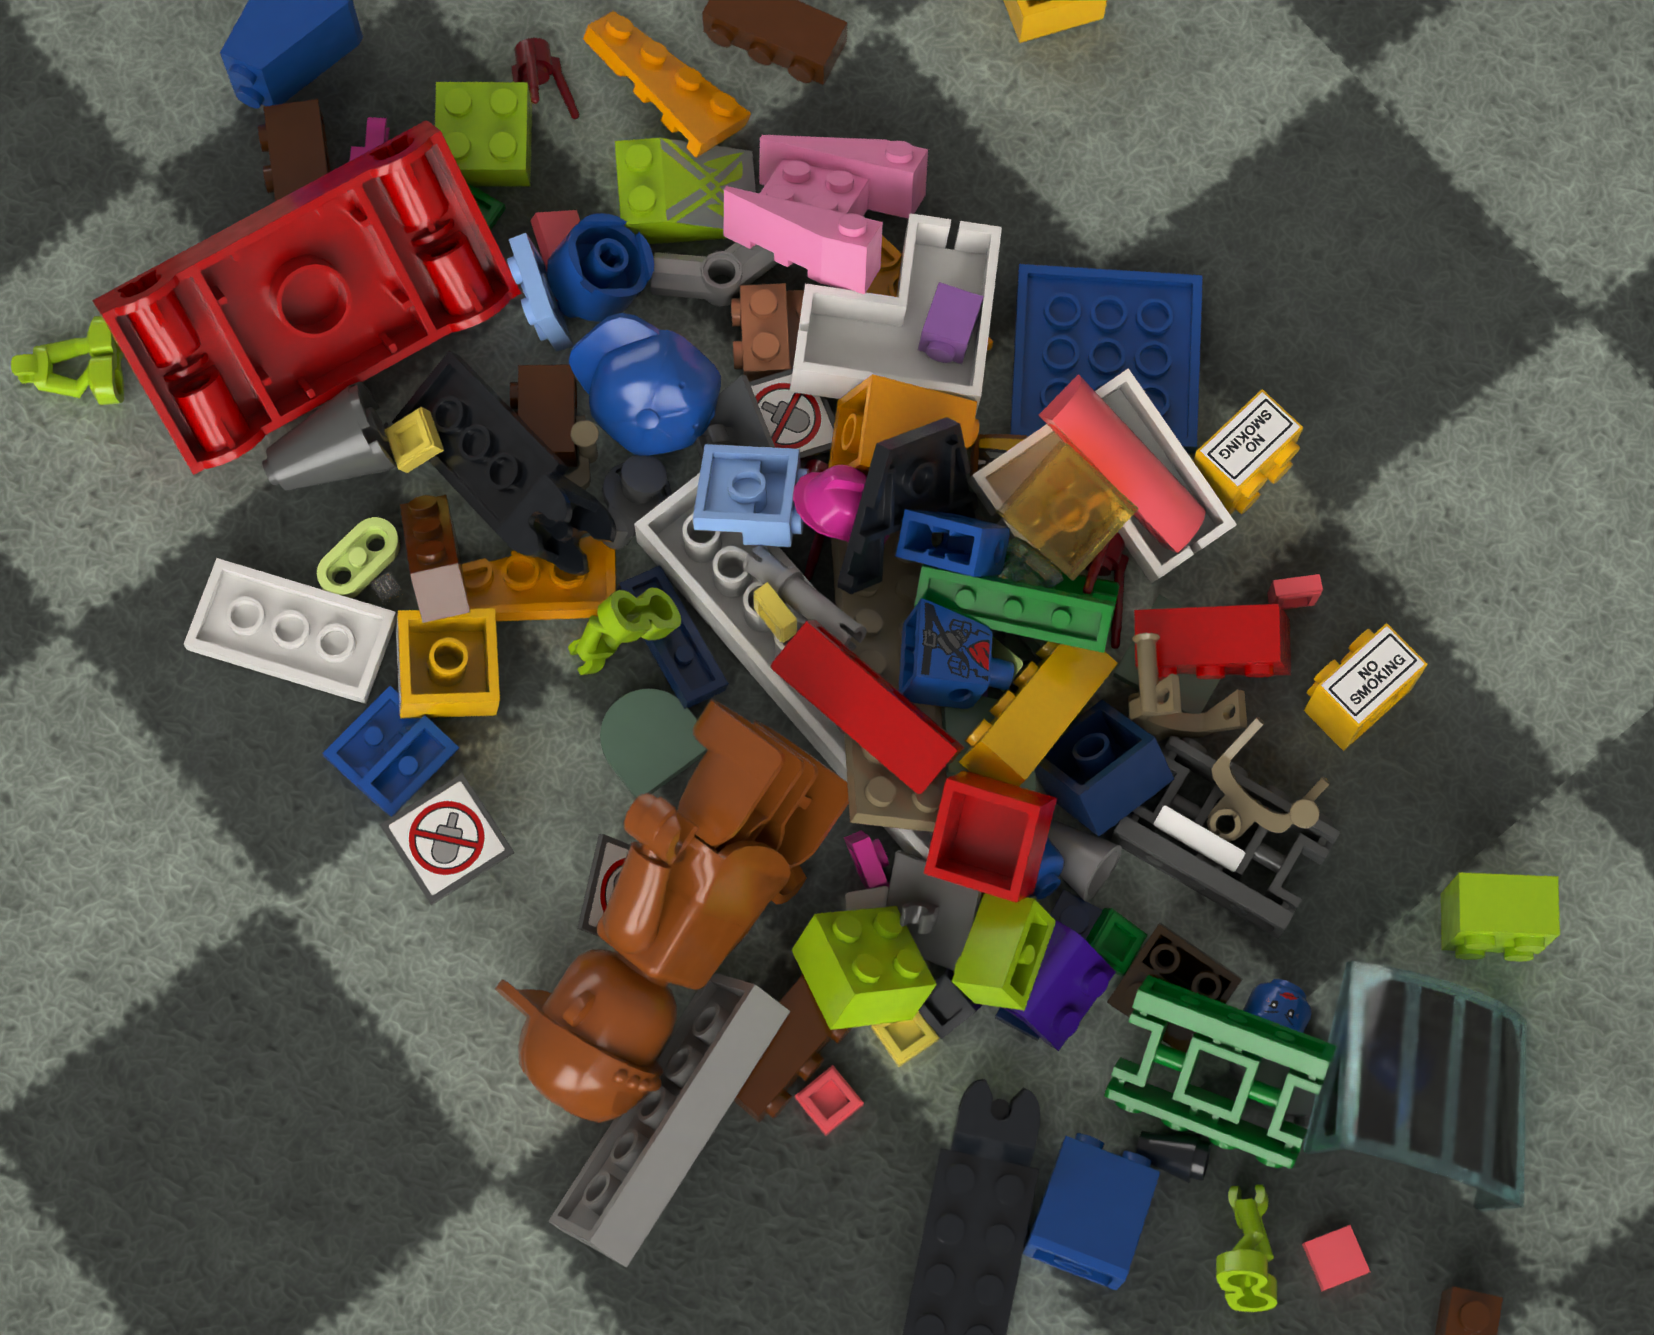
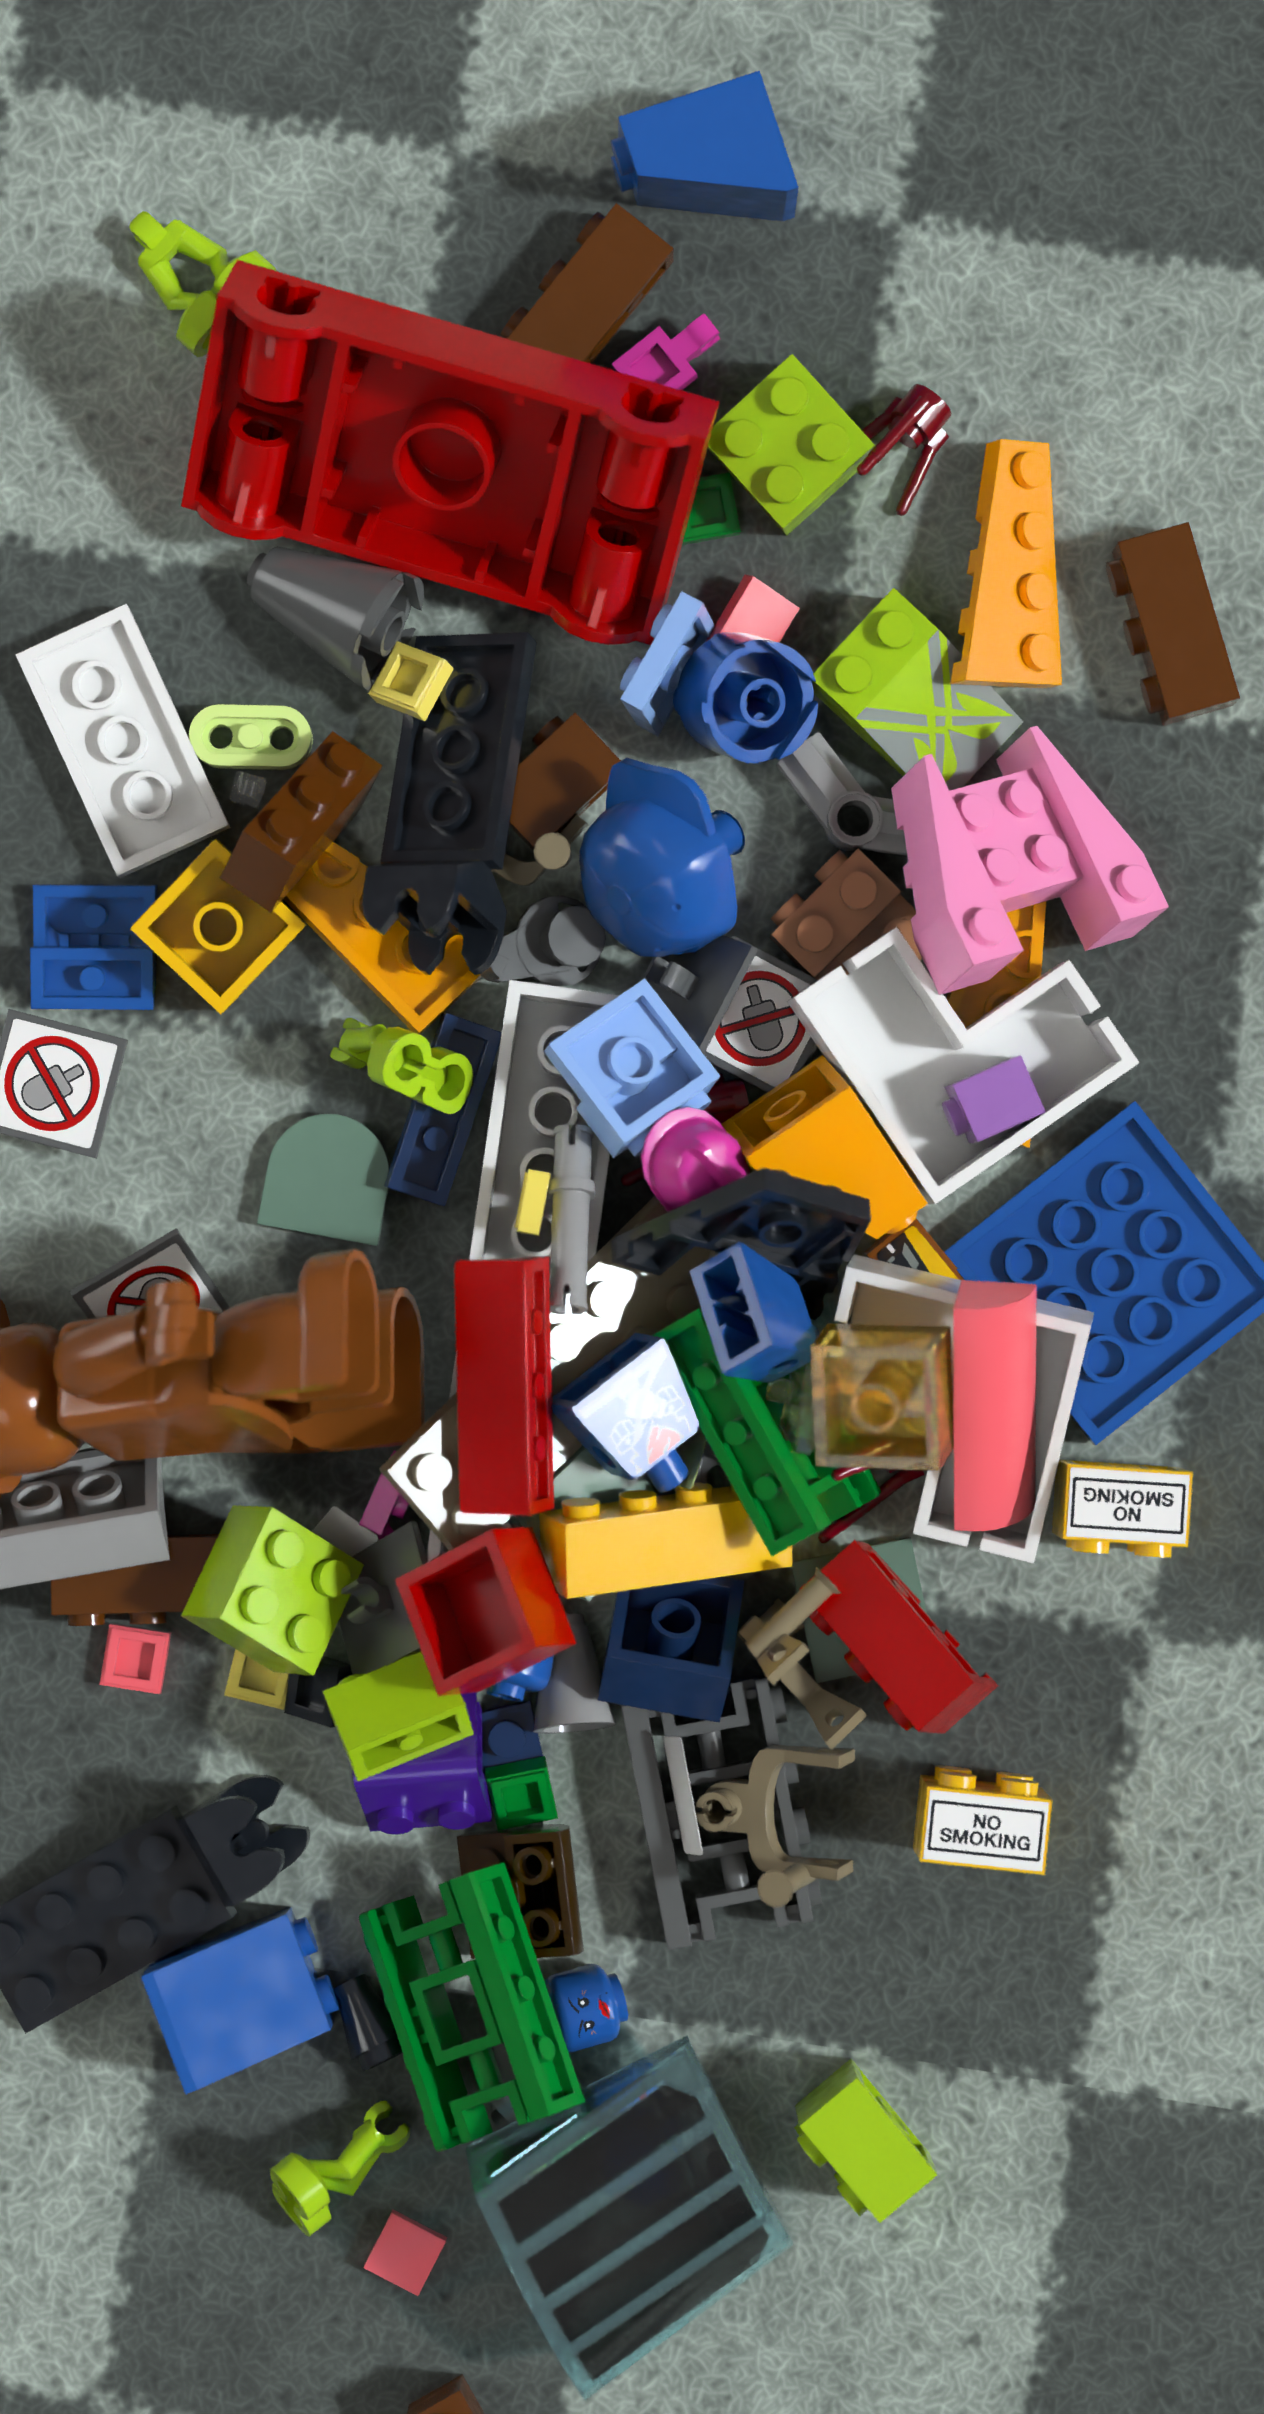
camera: 50 degrees right, 15 degrees up
(1295, 591) = (1028, 1669): coral tile -> none

